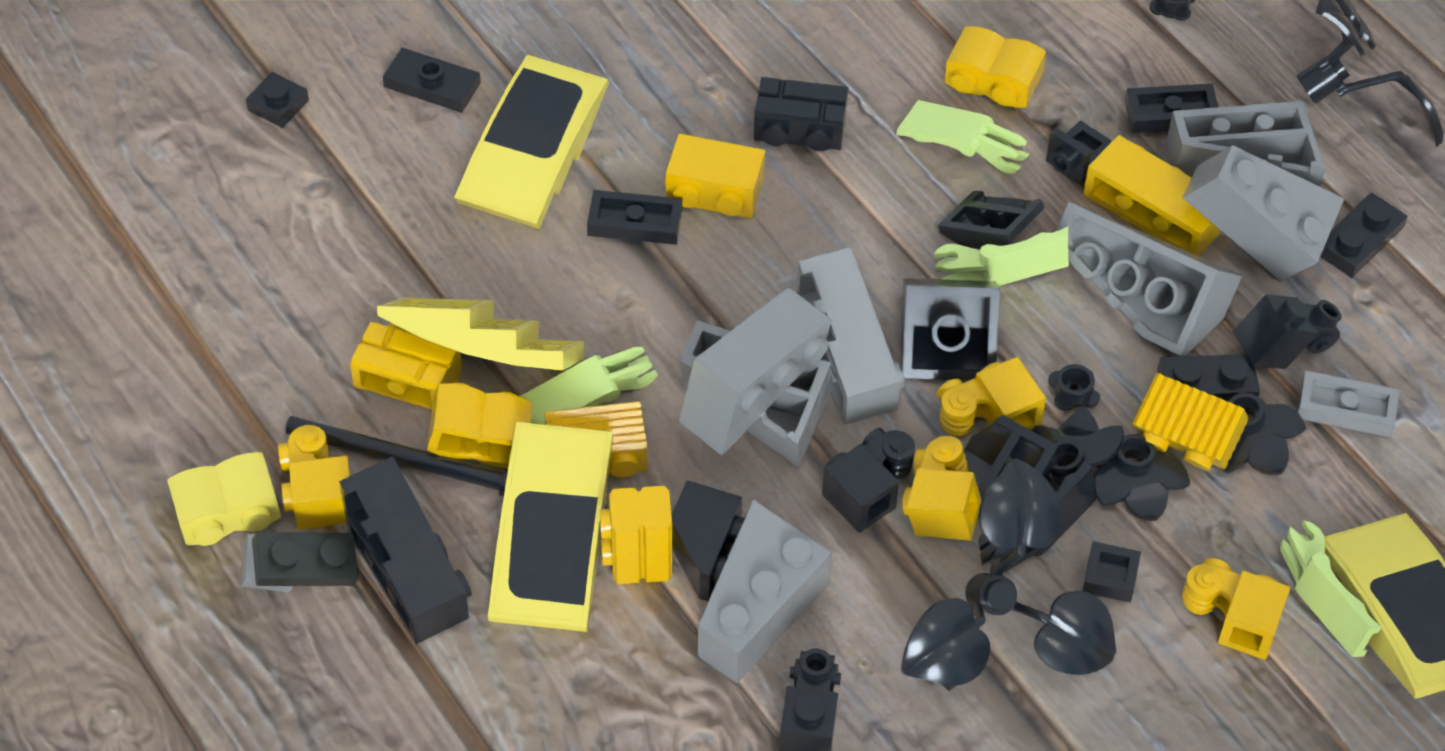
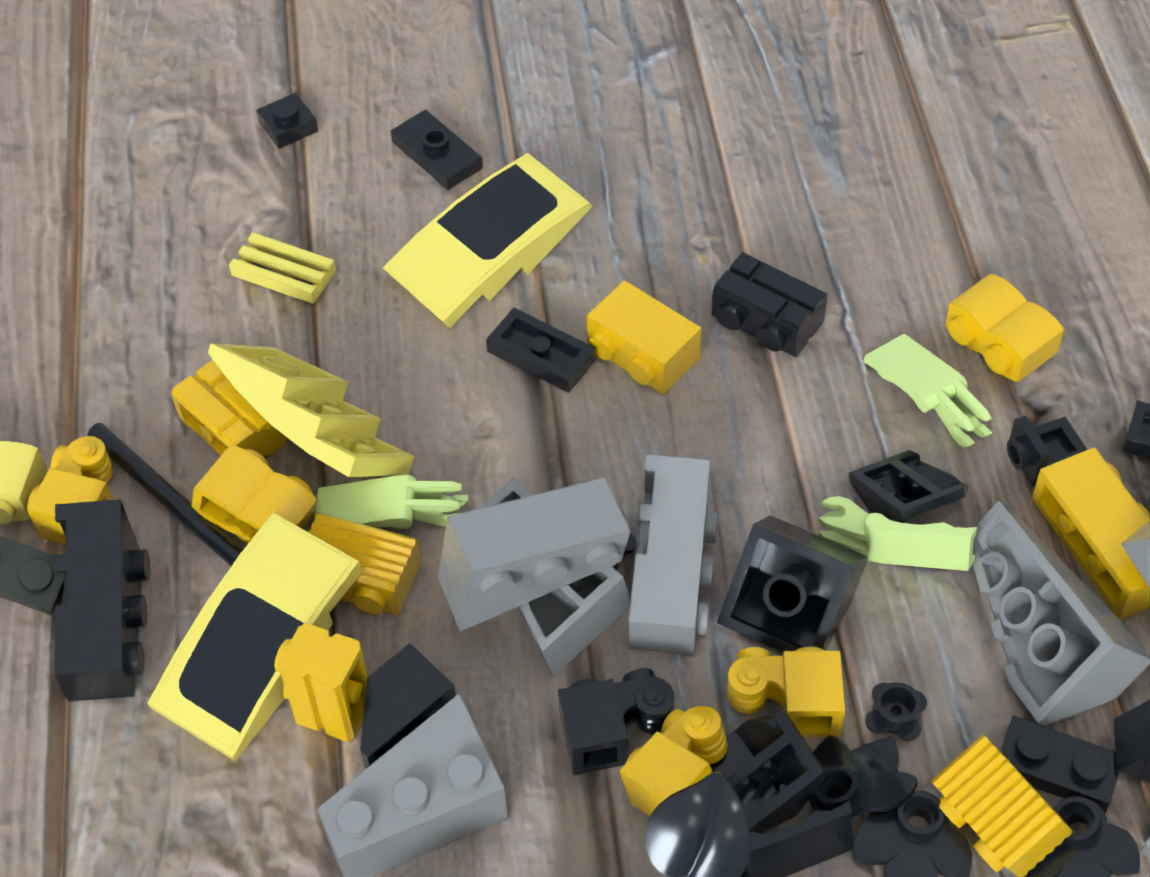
camera: 30 degrees right, 0 degrees up
(362, 223) = (287, 262): none -> light yellow tile

